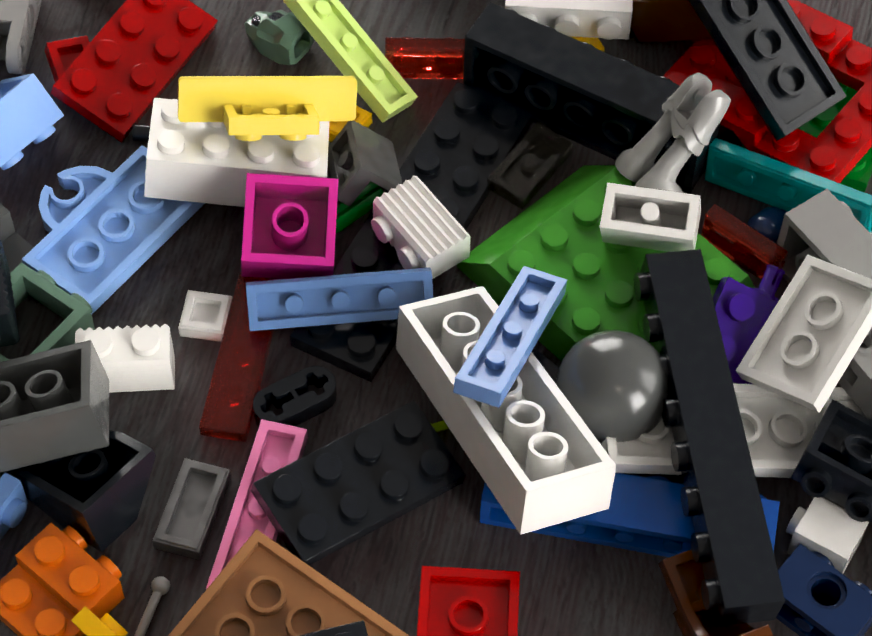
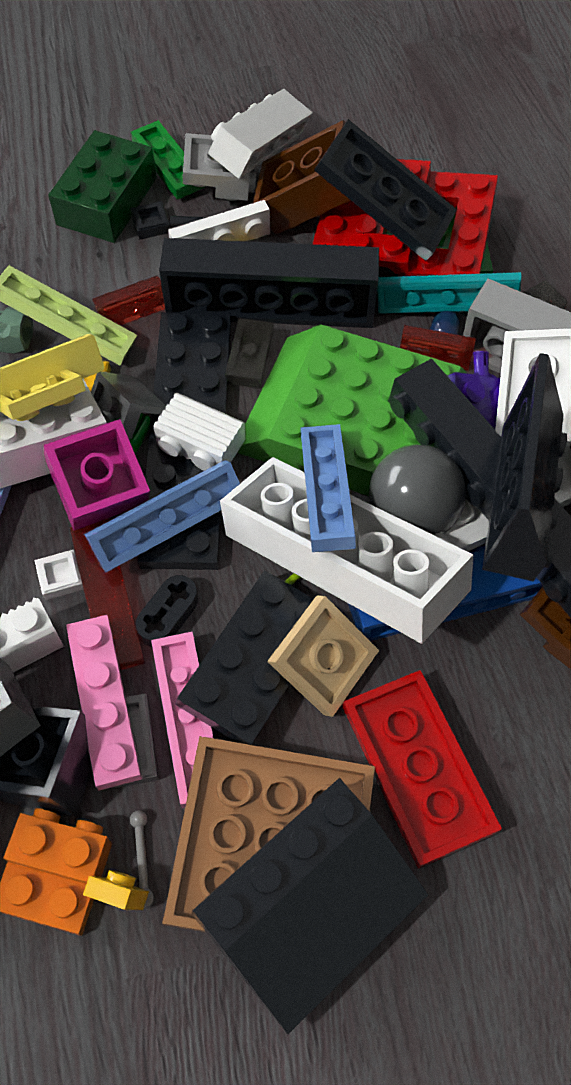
camera: 25 degrees left, 5 degrees up
(182, 457) = (103, 703): none -> bright pink plate
(426, 511) = (323, 655): none -> tan plate
(650, 218) = (379, 350): white brick -> none
(691, 118) = (373, 273): light grey piece -> none
(714, 410) = (527, 479): none -> black slope

